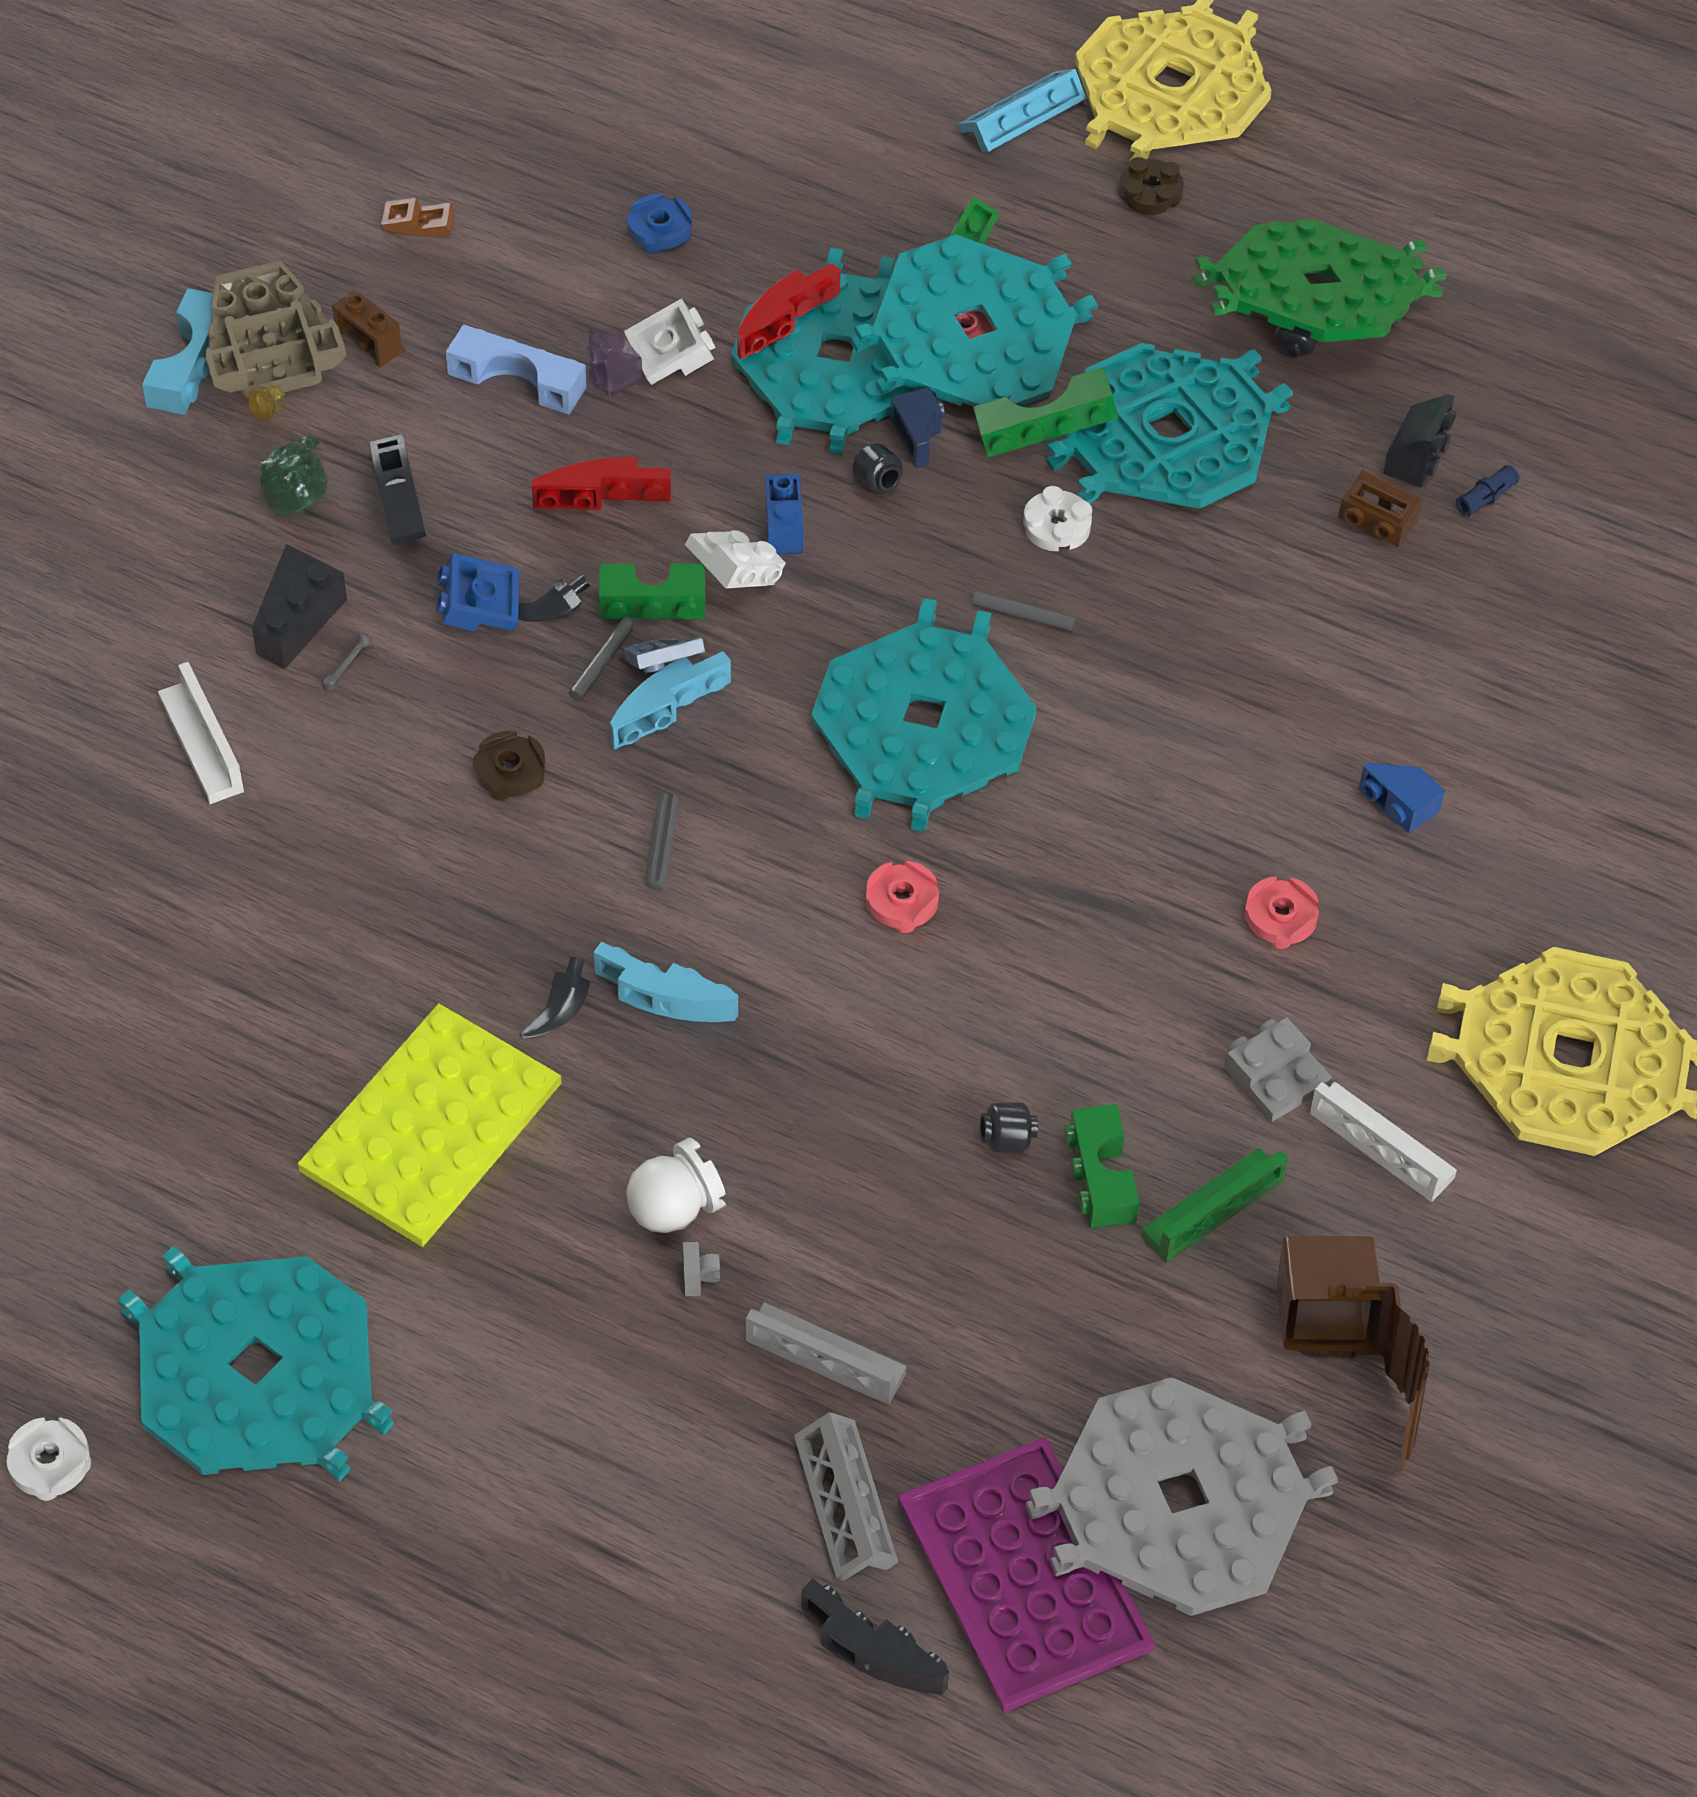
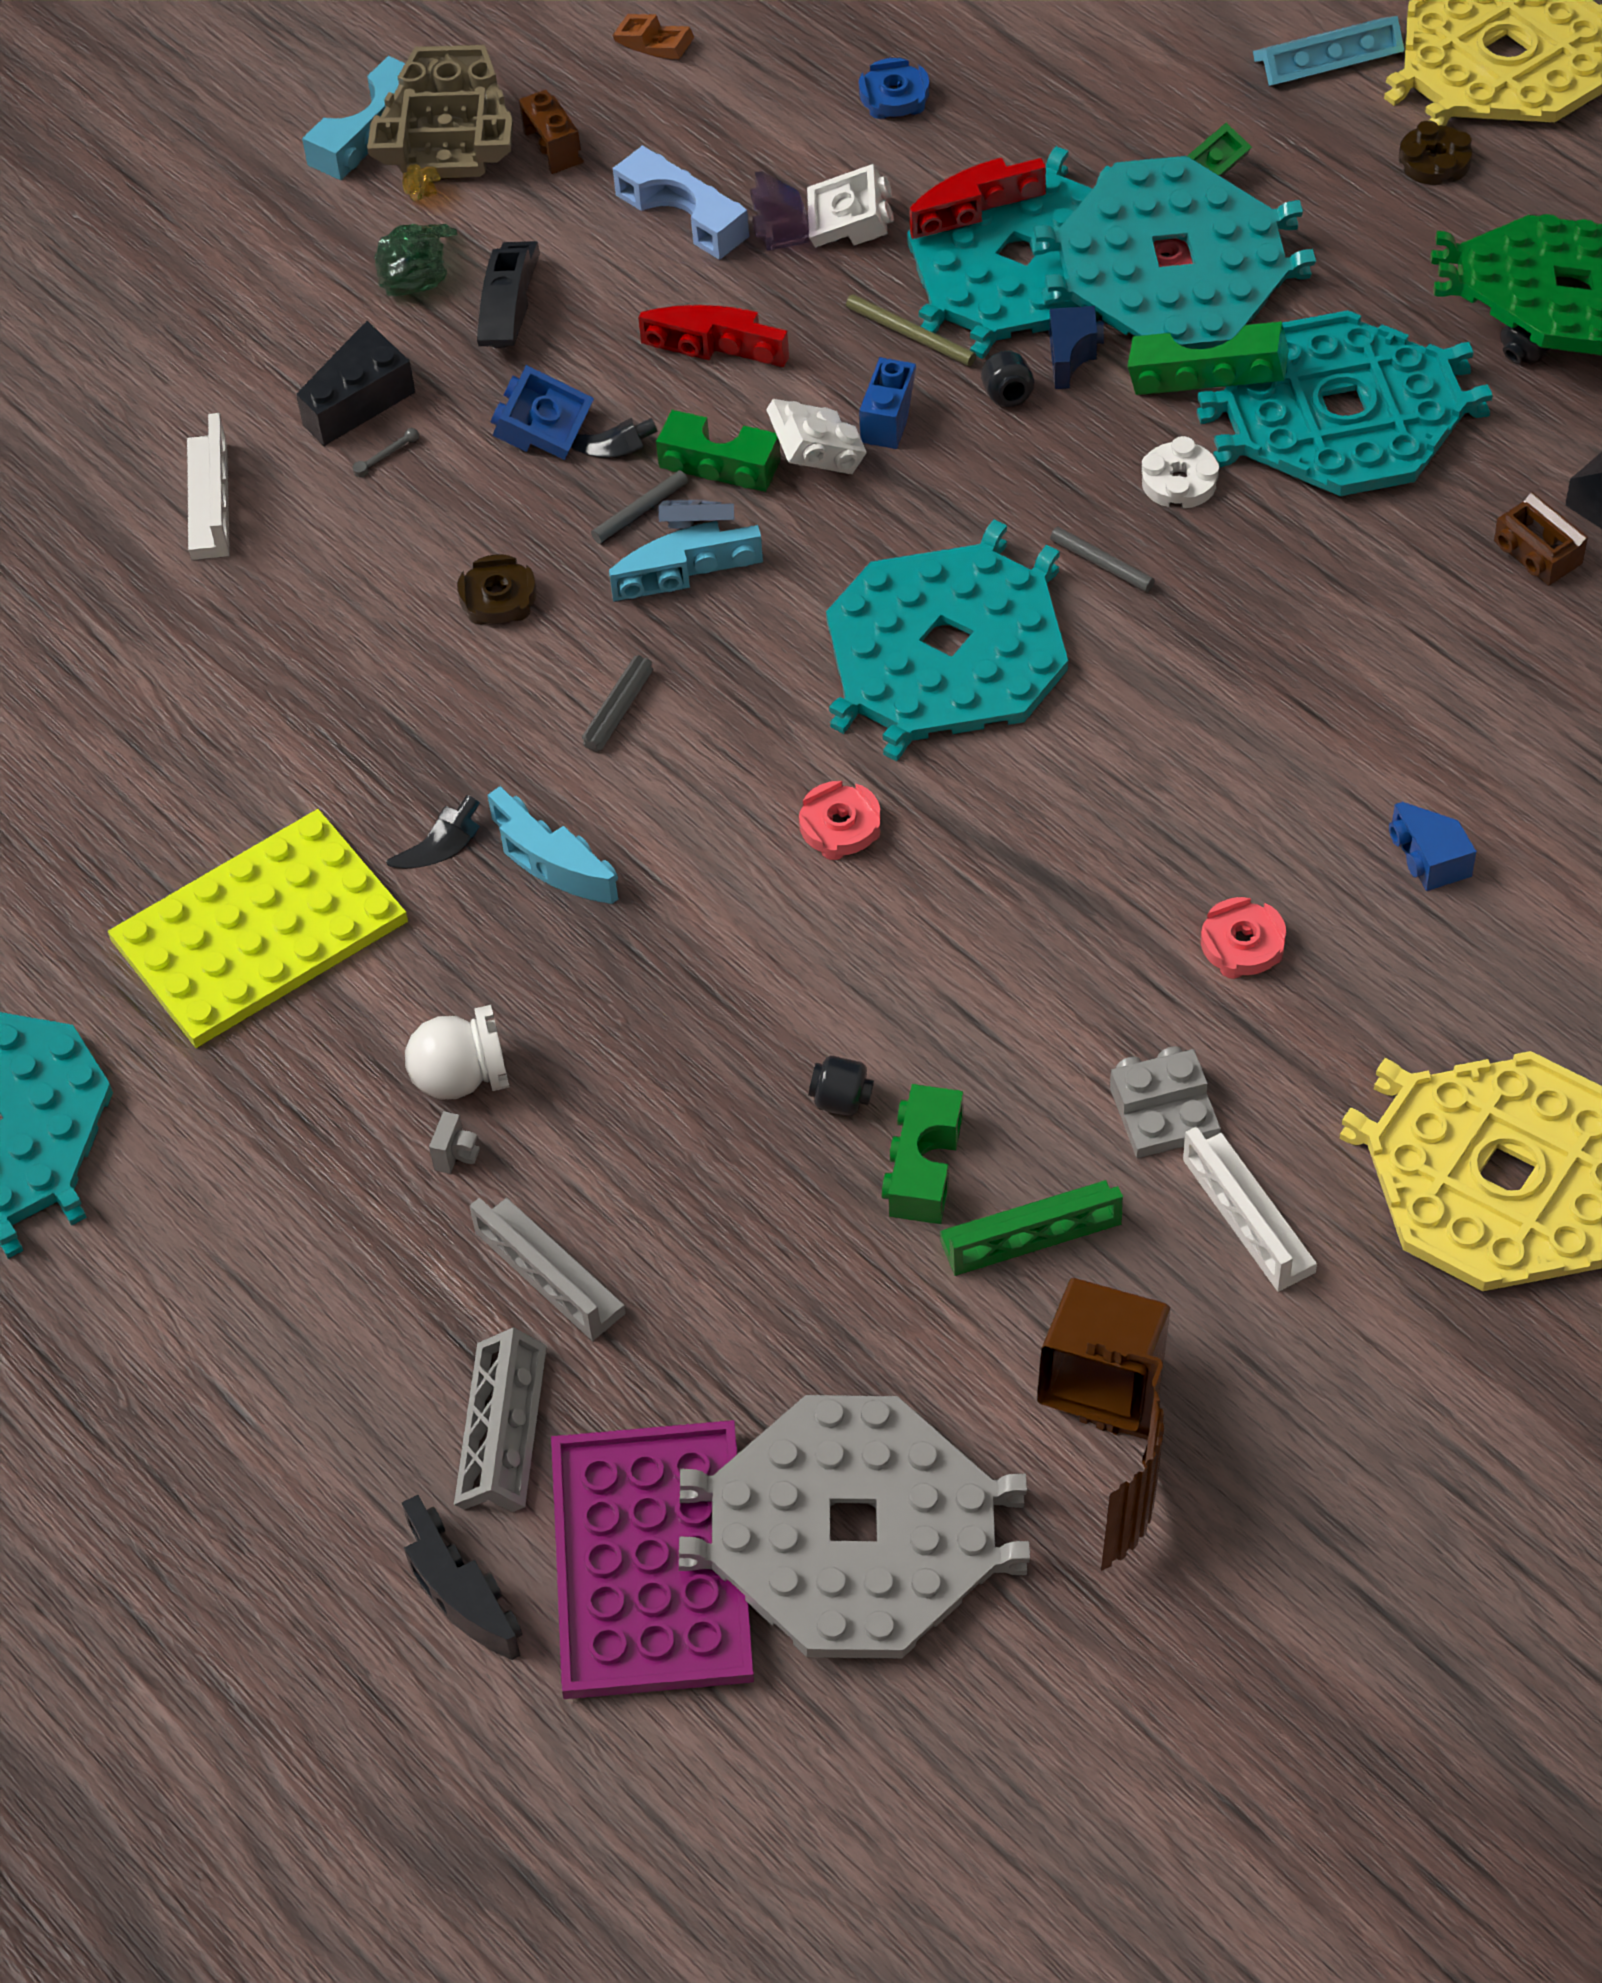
camera: 25 degrees right, 0 degrees up
(770, 442) = (911, 330): none -> olive bar

